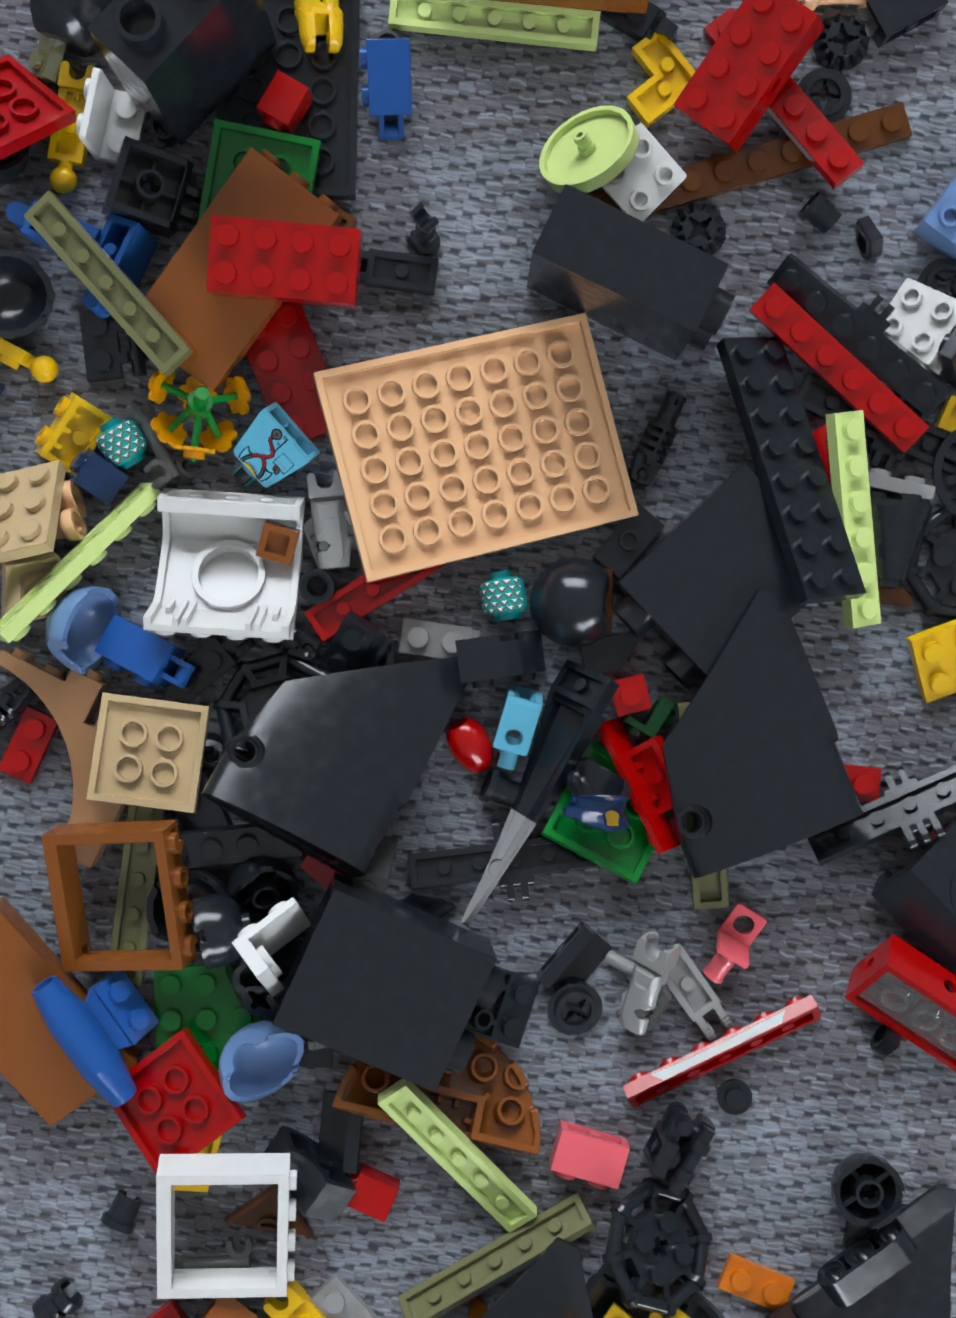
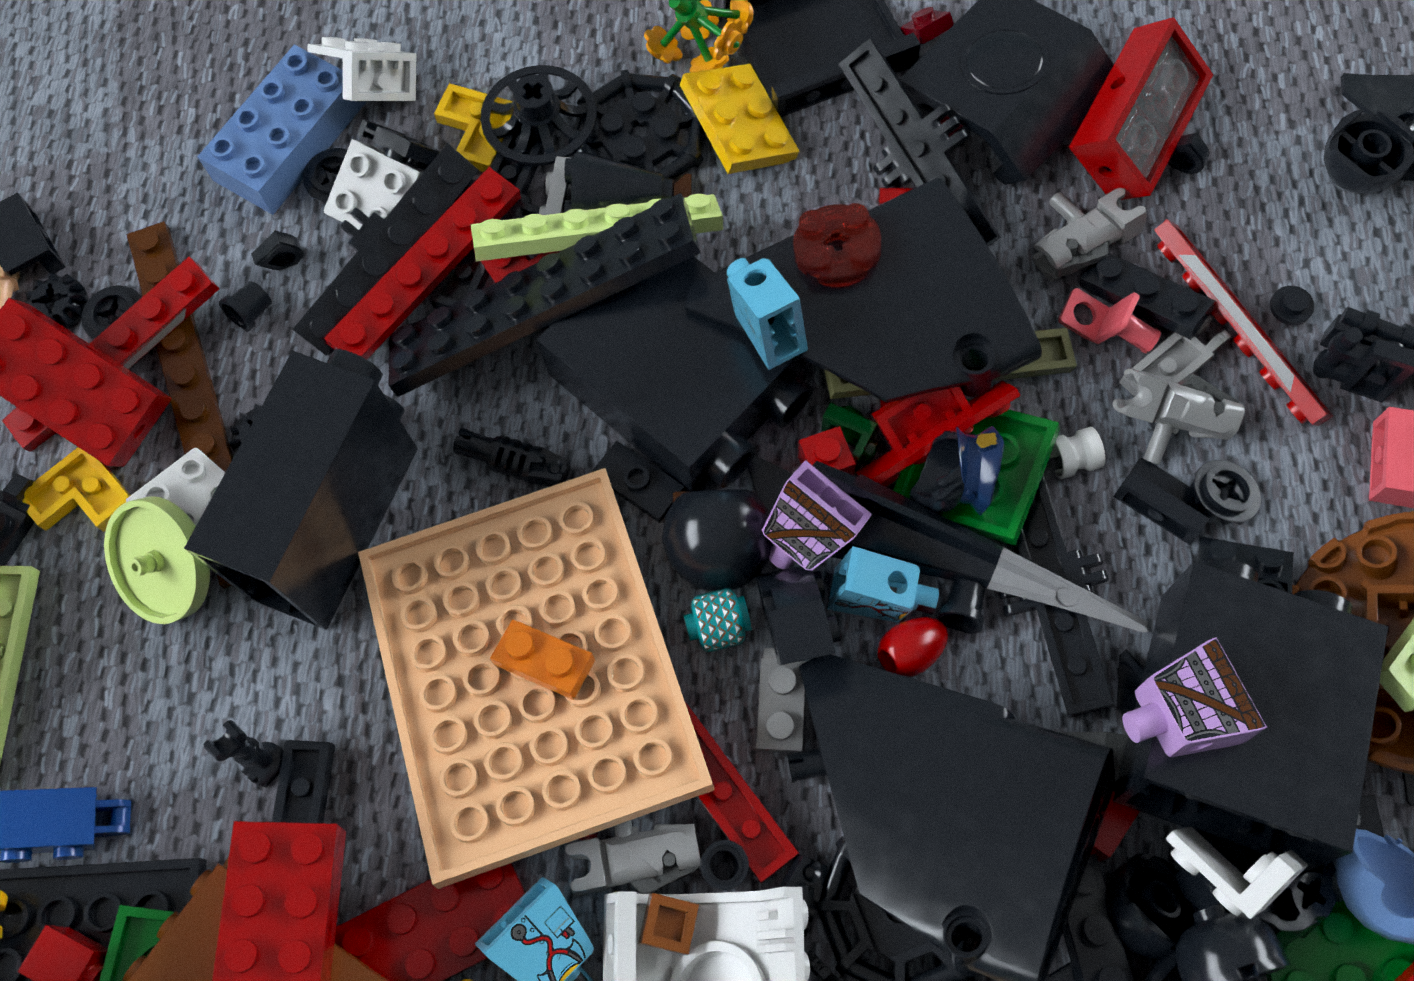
camera: 90 degrees left, 20 degrees down
(355, 646) = (801, 806): black plate -> none
(381, 932) = (1194, 705): none -> torso
(476, 458) = (543, 659): none -> orange plate
(570, 678) = (811, 520): none -> torso
(618, 898) = (1079, 452): none -> white wheel
(741, 653) = (759, 294): none -> medium azure torso
(750, 985) = (1159, 300): none -> black plate
(787, 736) = (833, 223): none -> clear red plate
(813, 937) = (1086, 235): none -> light grey piece

